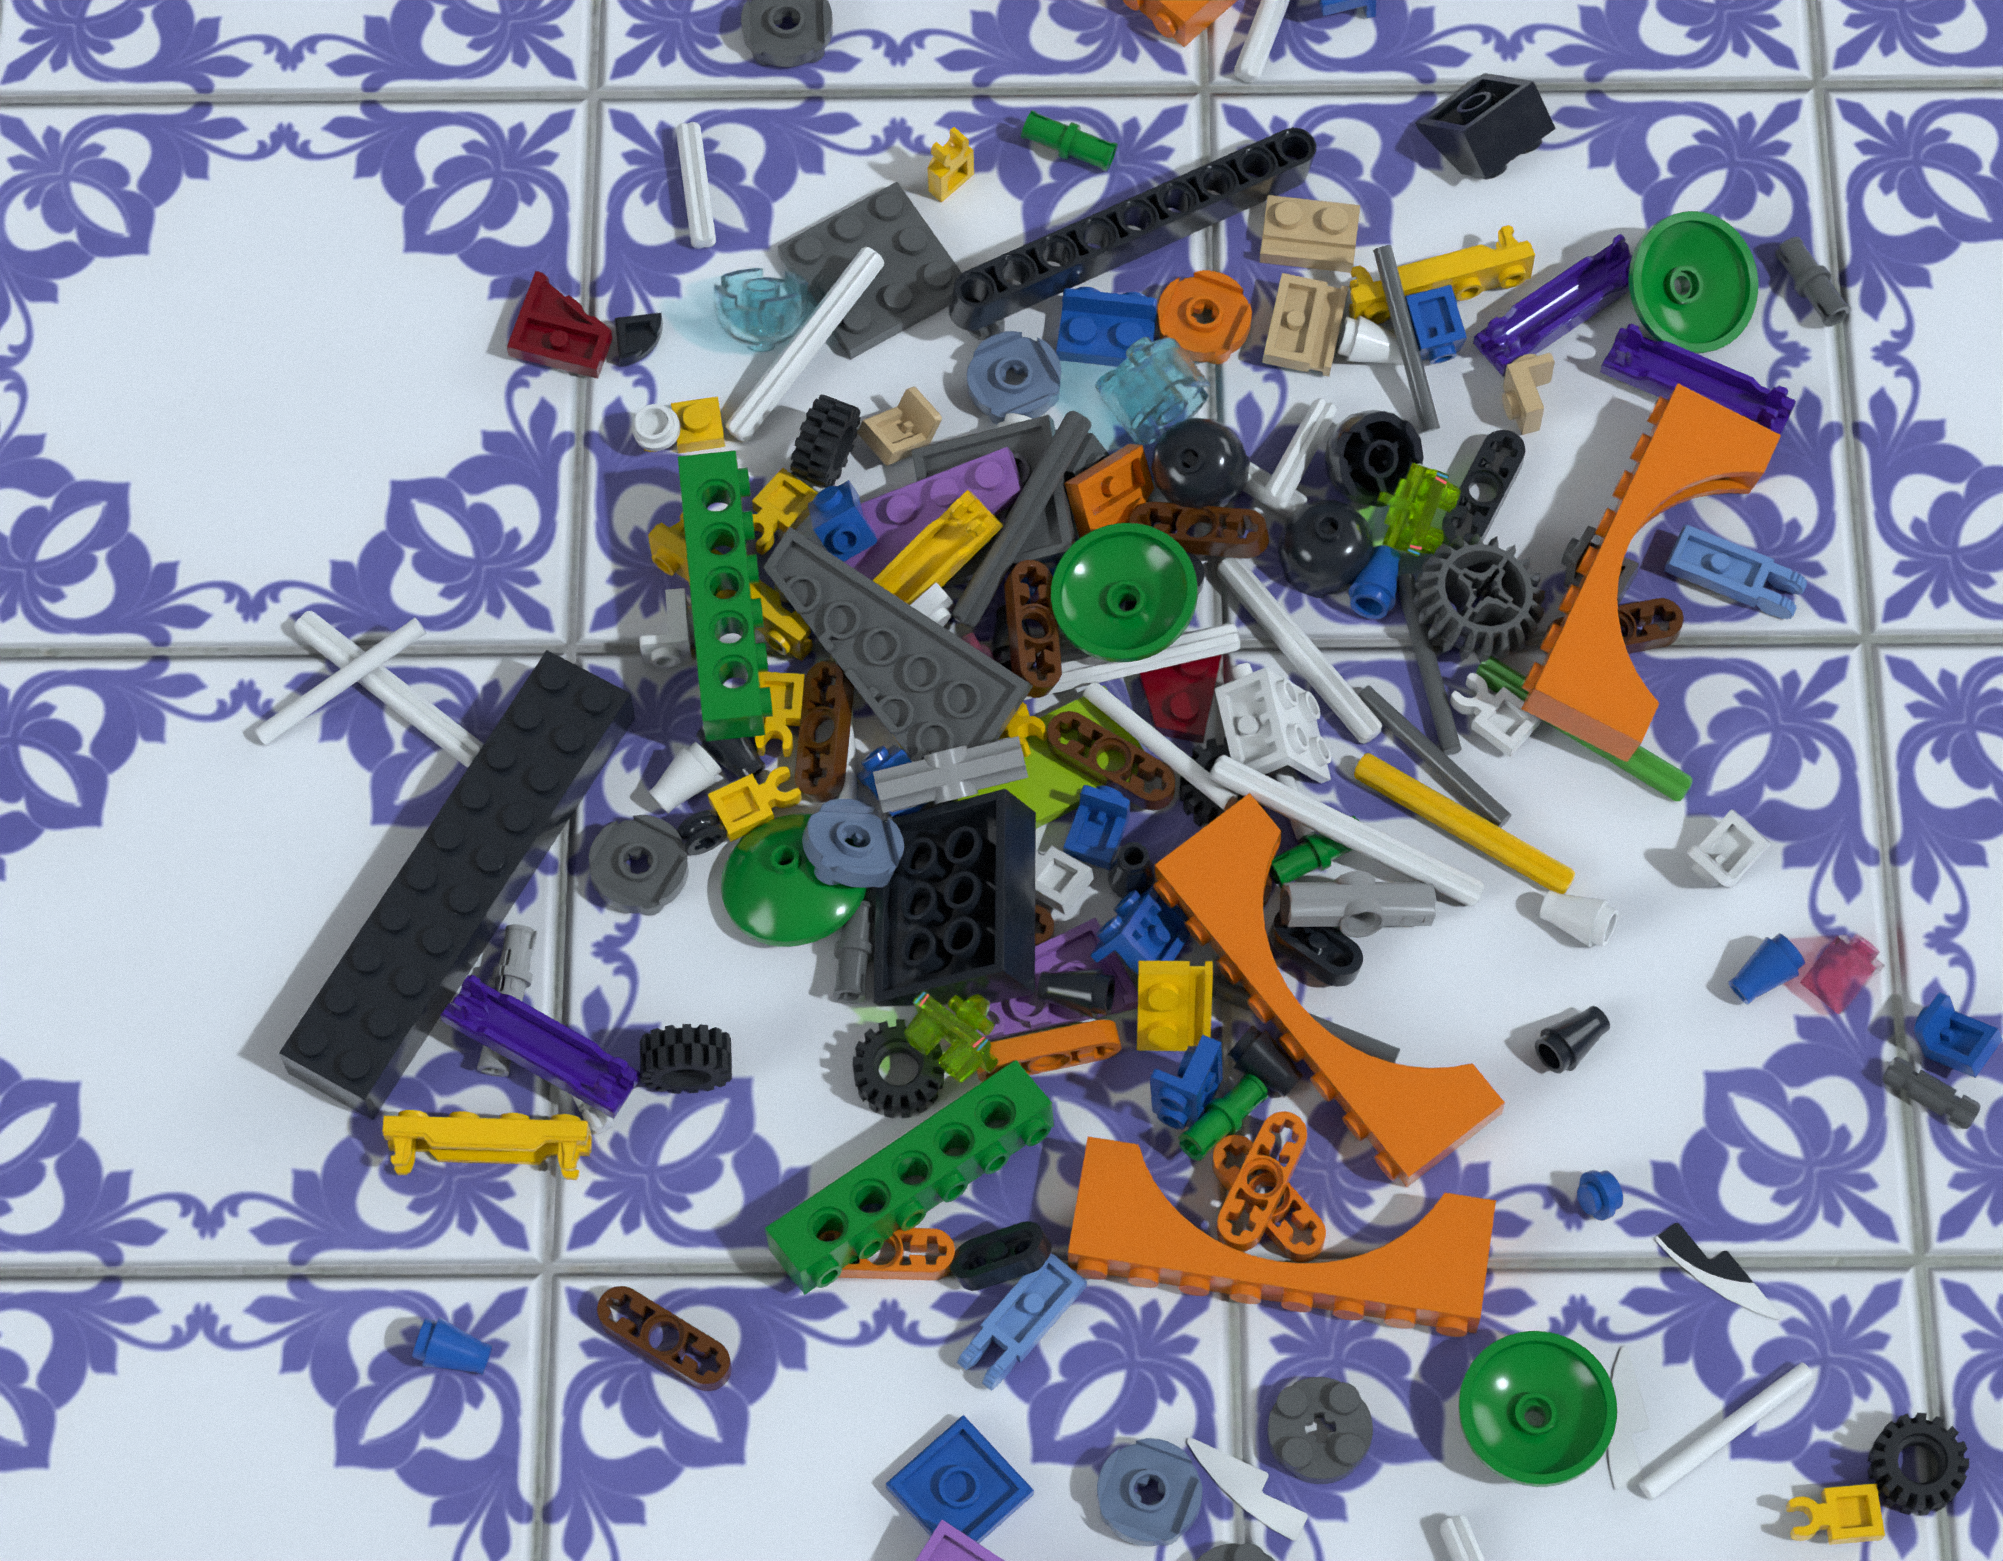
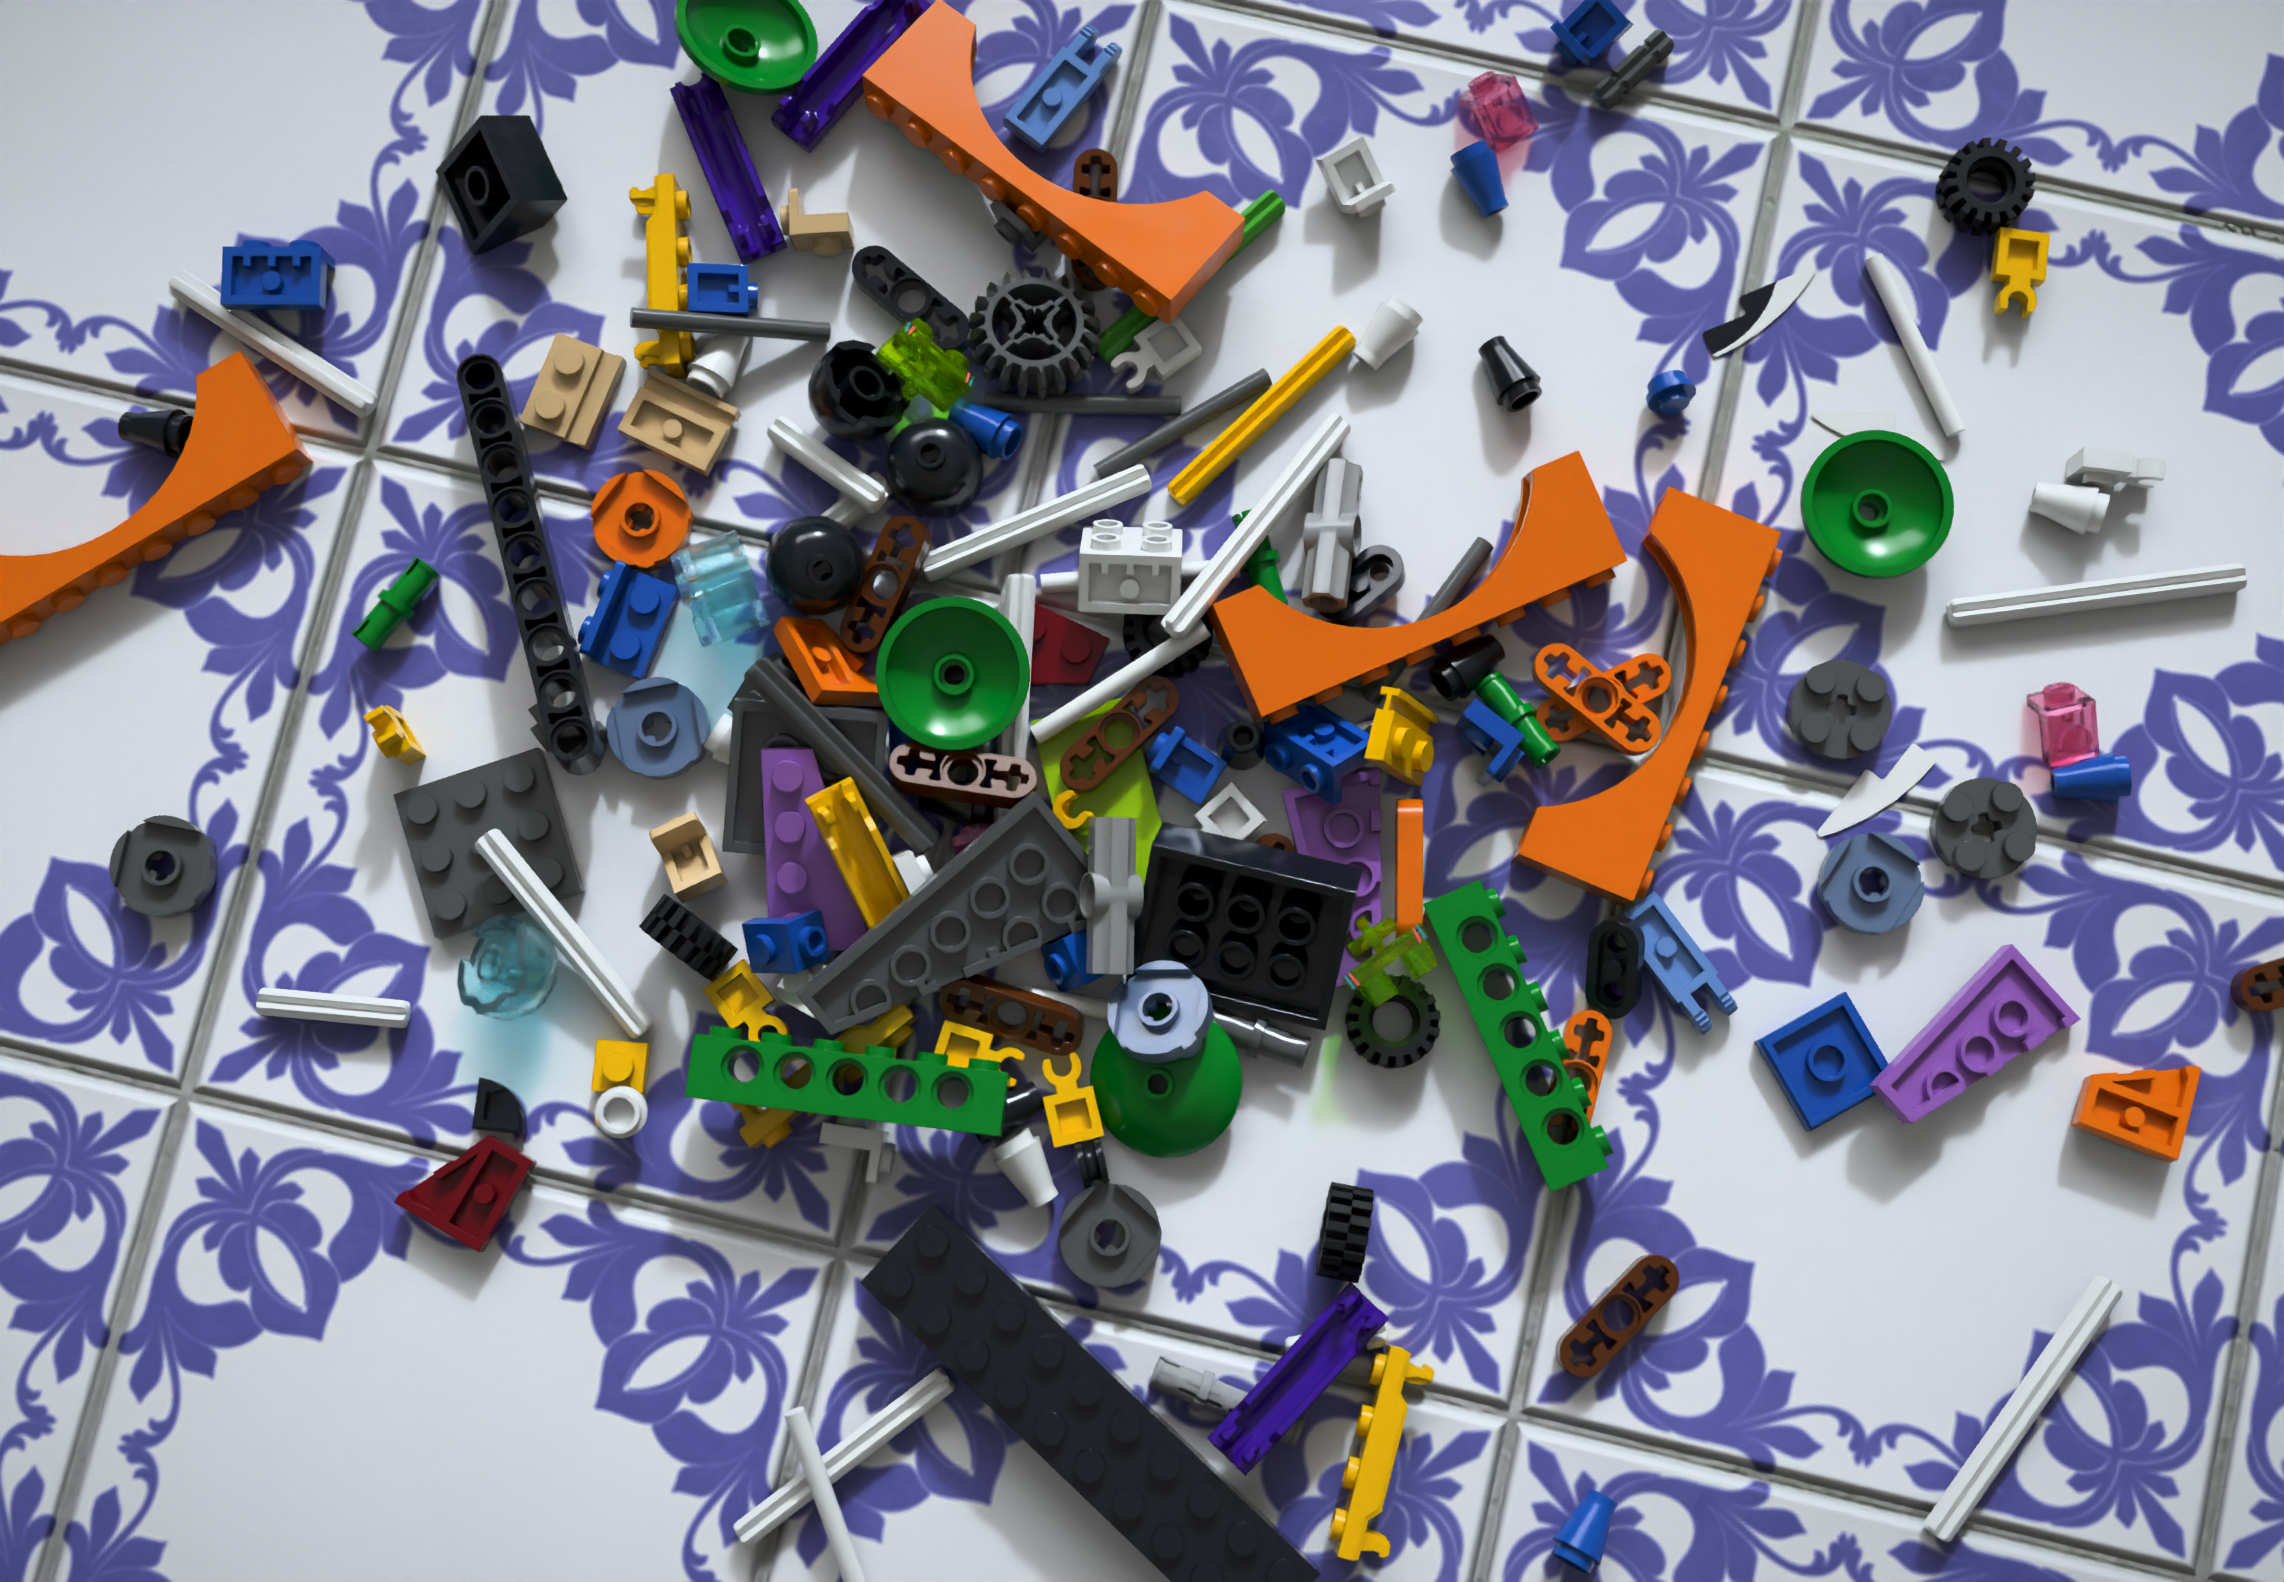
camera: 75 degrees left, 15 degrees up
(1081, 991) = (1365, 826): black cone -> none

